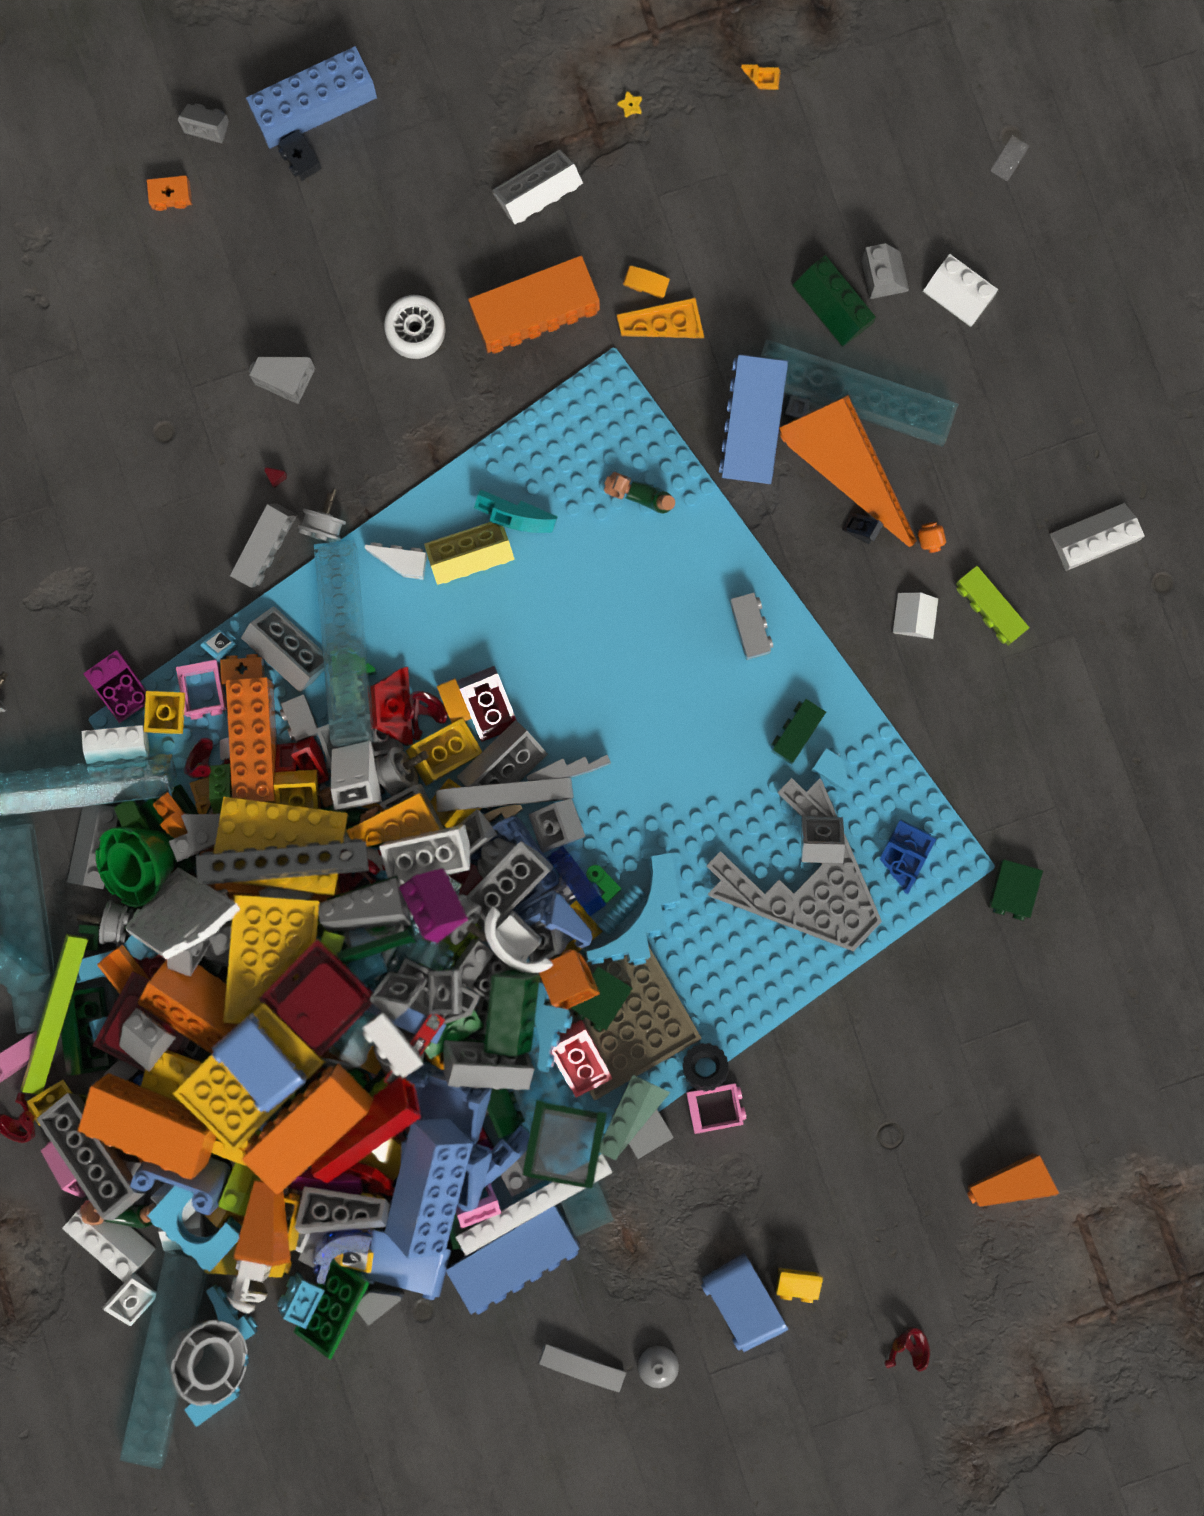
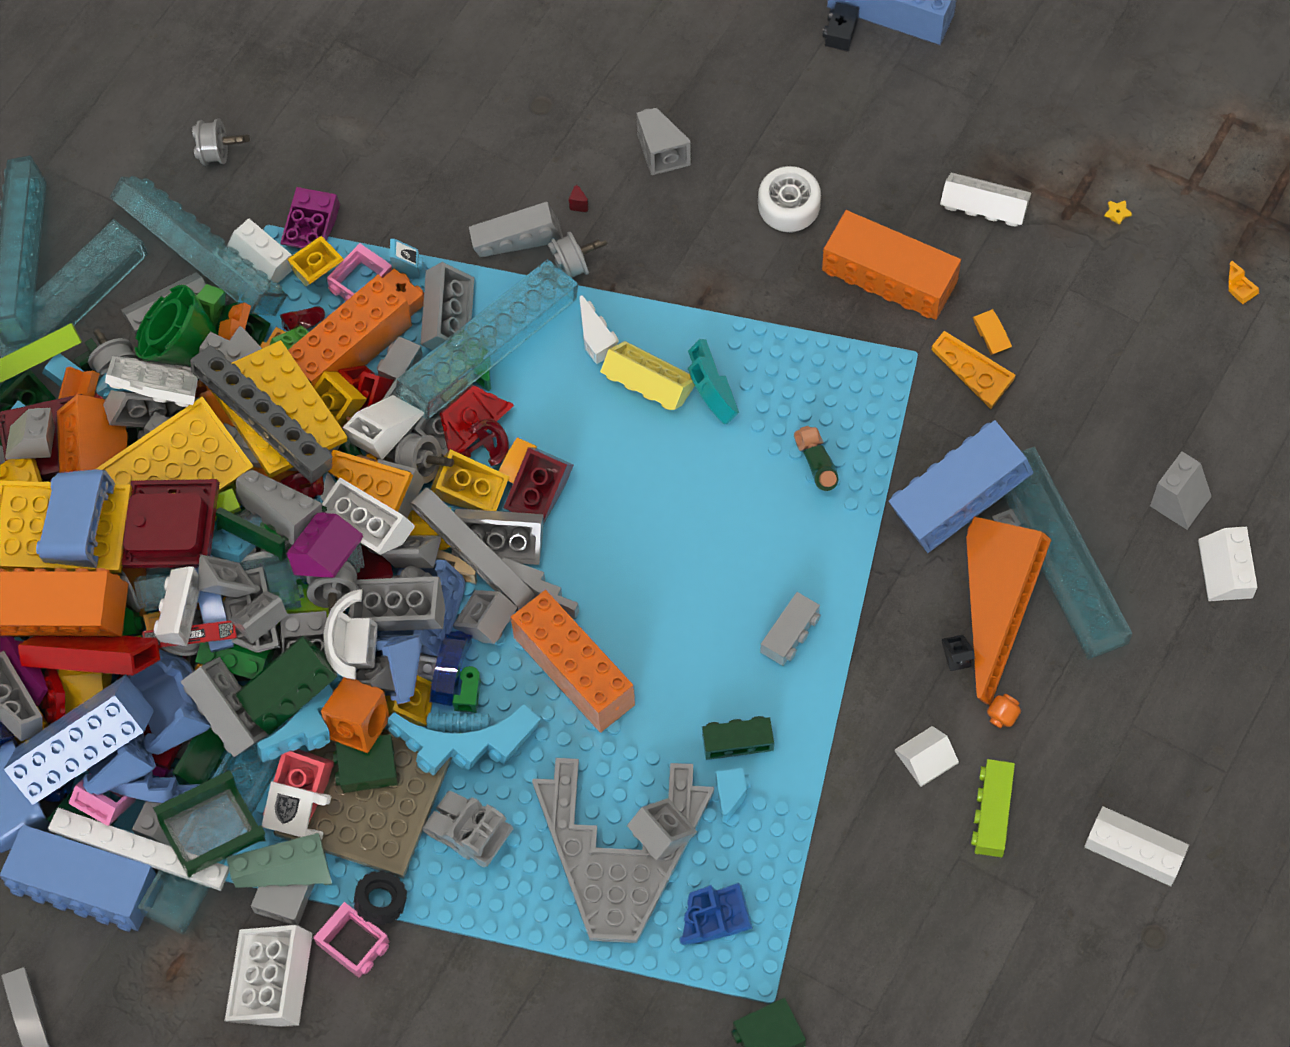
camera: 50 degrees right, 20 degrees down
(592, 1076) = (290, 809): none -> white flag
(649, 795) = (573, 661): none -> orange brick
(692, 1184) = (269, 976): none -> white slope
(703, 958) = (468, 827): none -> light grey connector
(834, 301) = (1119, 478): dark green slope -> none

